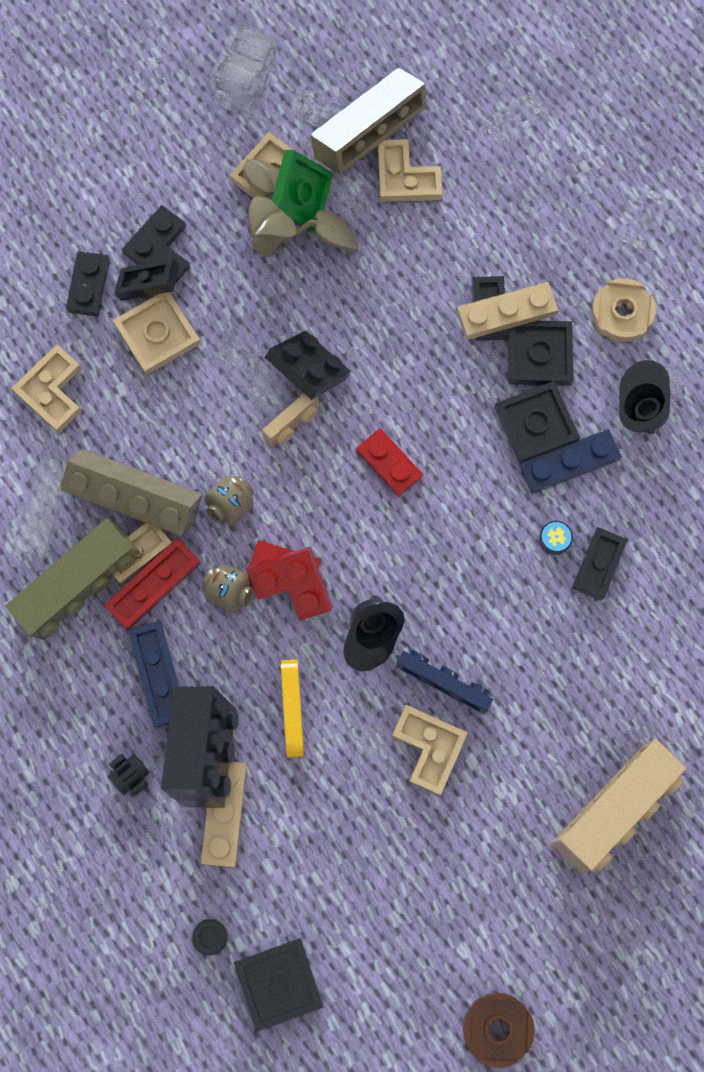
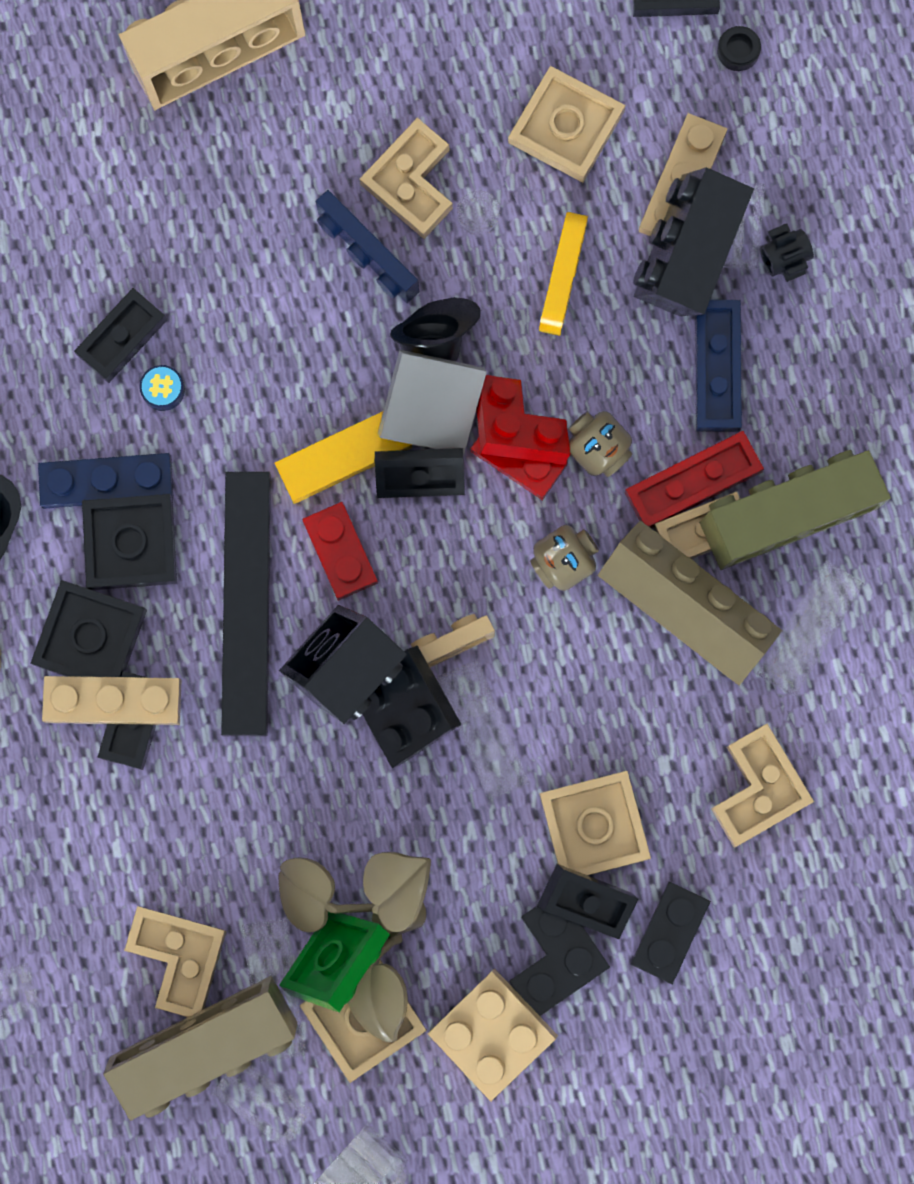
camera: 155 degrees left, 5 degrees up
(186, 187) = (492, 1035): none -> tan plate
(325, 828) = (566, 124): none -> tan plate
(350, 529) = (419, 473): none -> black plate
(357, 367) = (344, 664): none -> black brick
(357, 576) = (431, 401): none -> light grey tile
(409, 529) = (334, 459): none -> yellow tile
(442, 409) = (246, 604): none -> black tile

